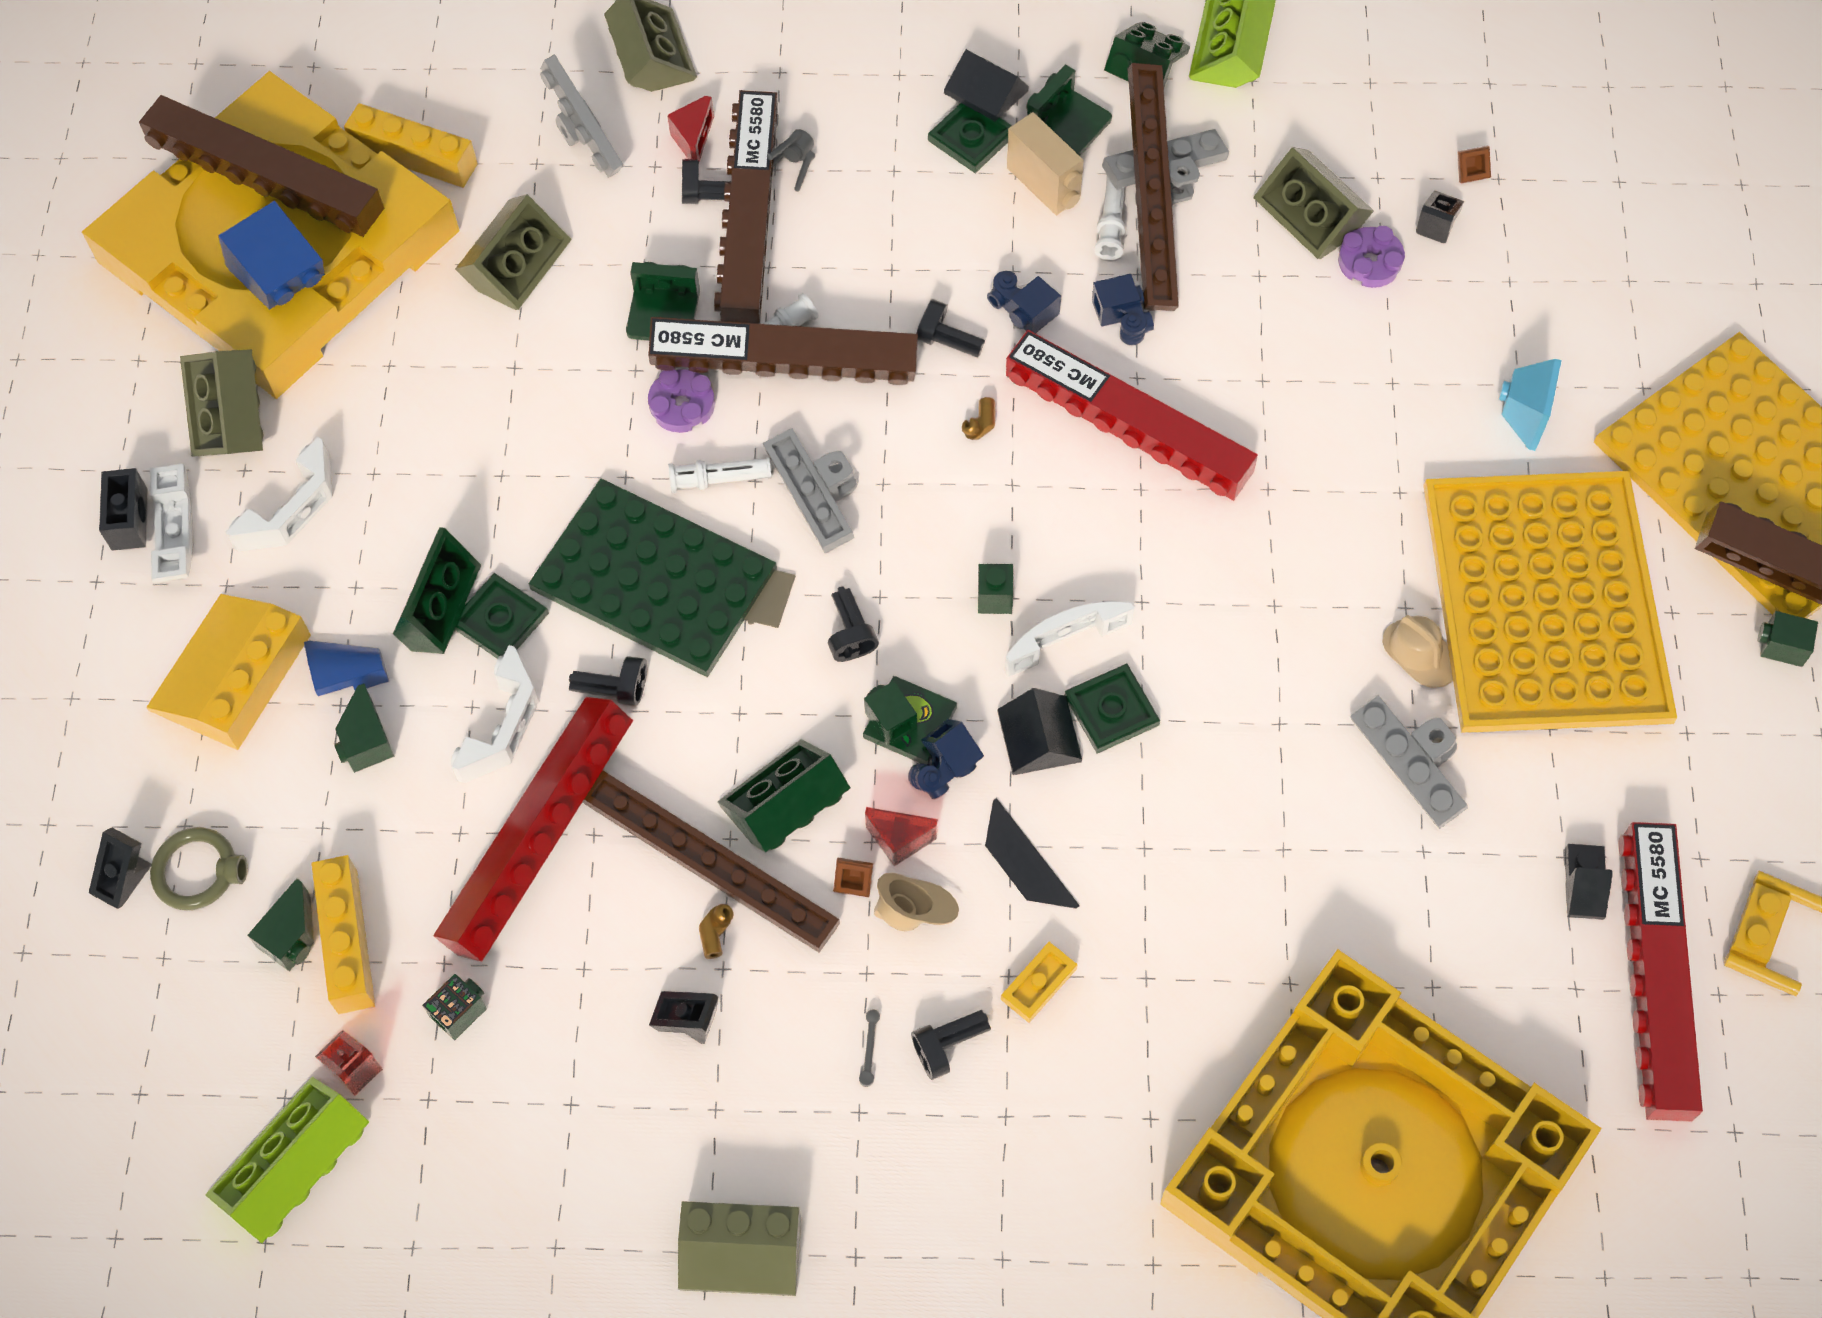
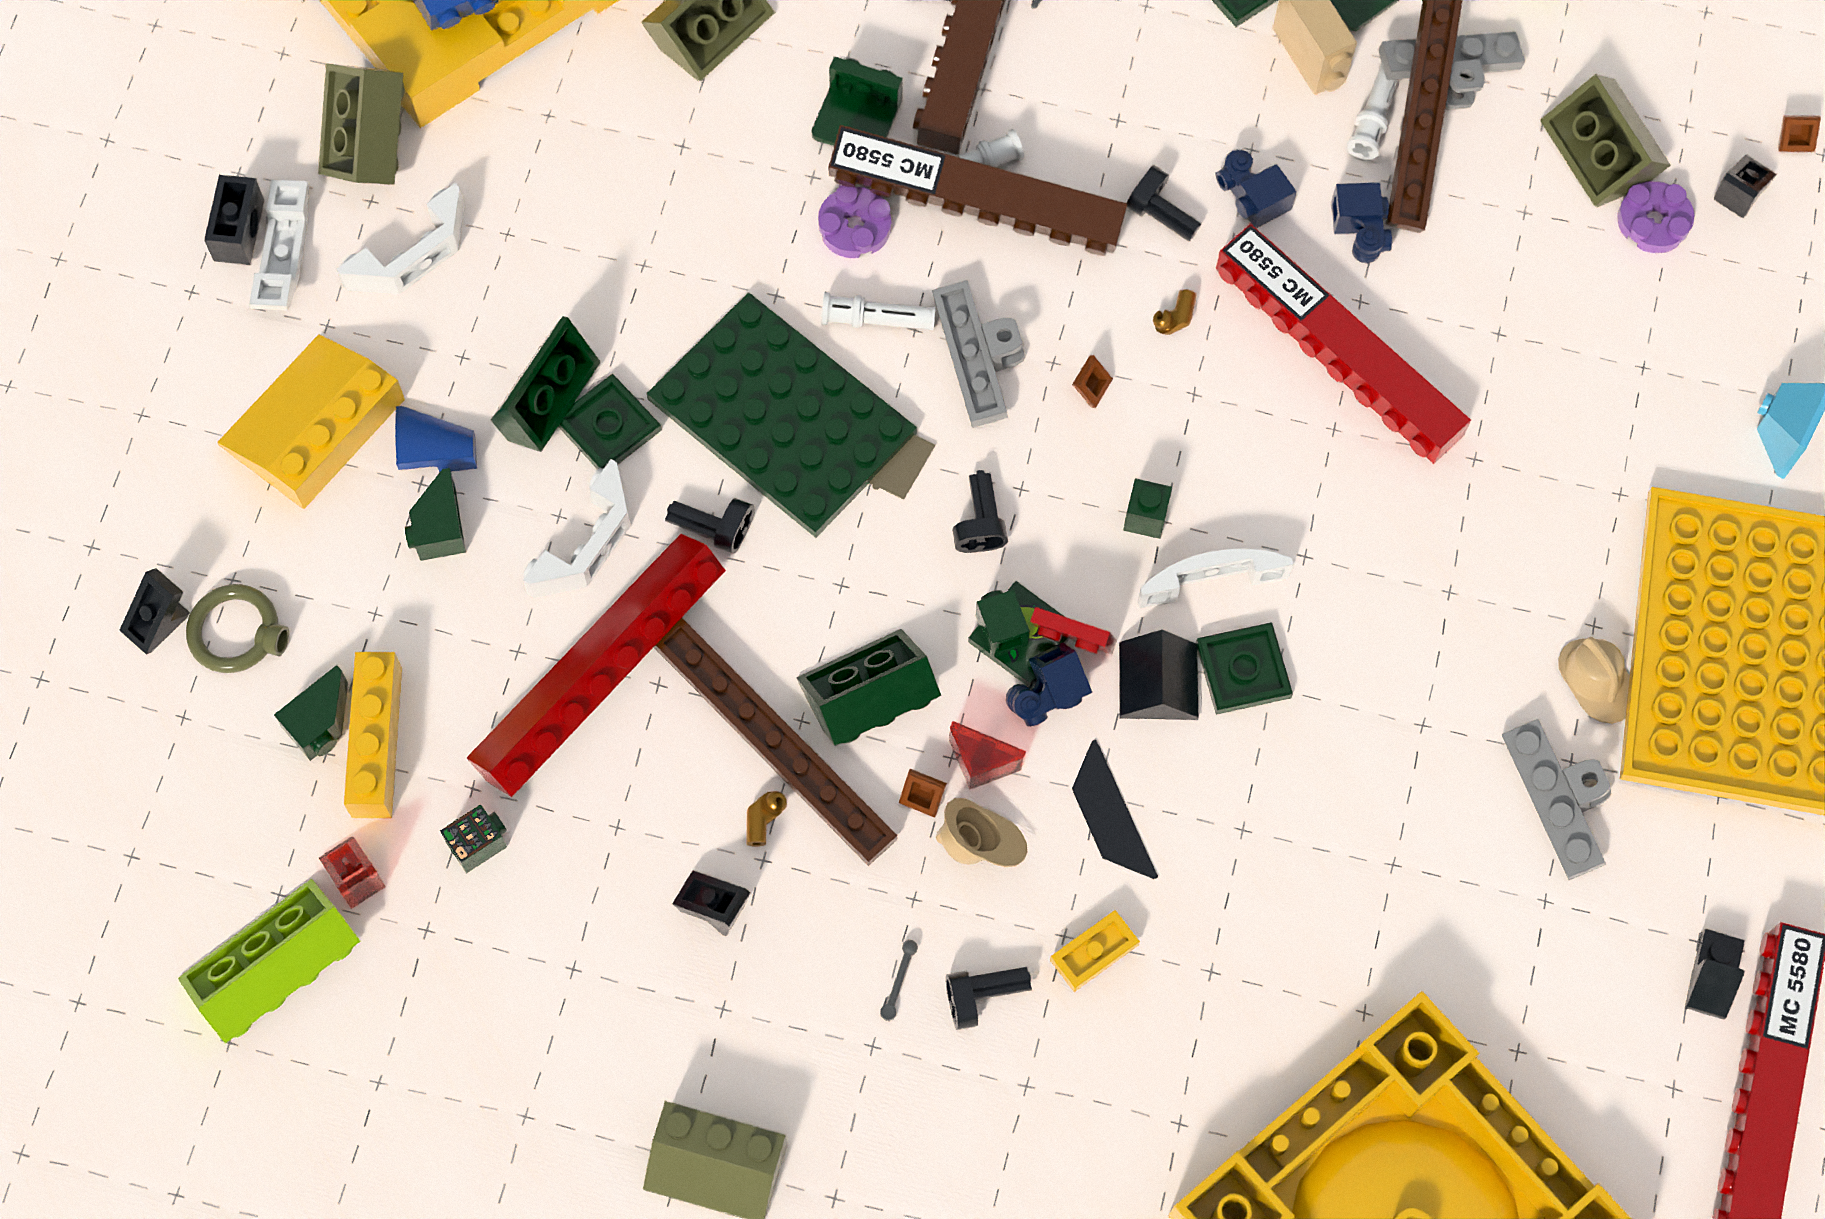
camera: 10 degrees right, 5 degrees up
(921, 491) = (1092, 381): none -> dark orange slope
(964, 706) = (1086, 636): none -> red wing

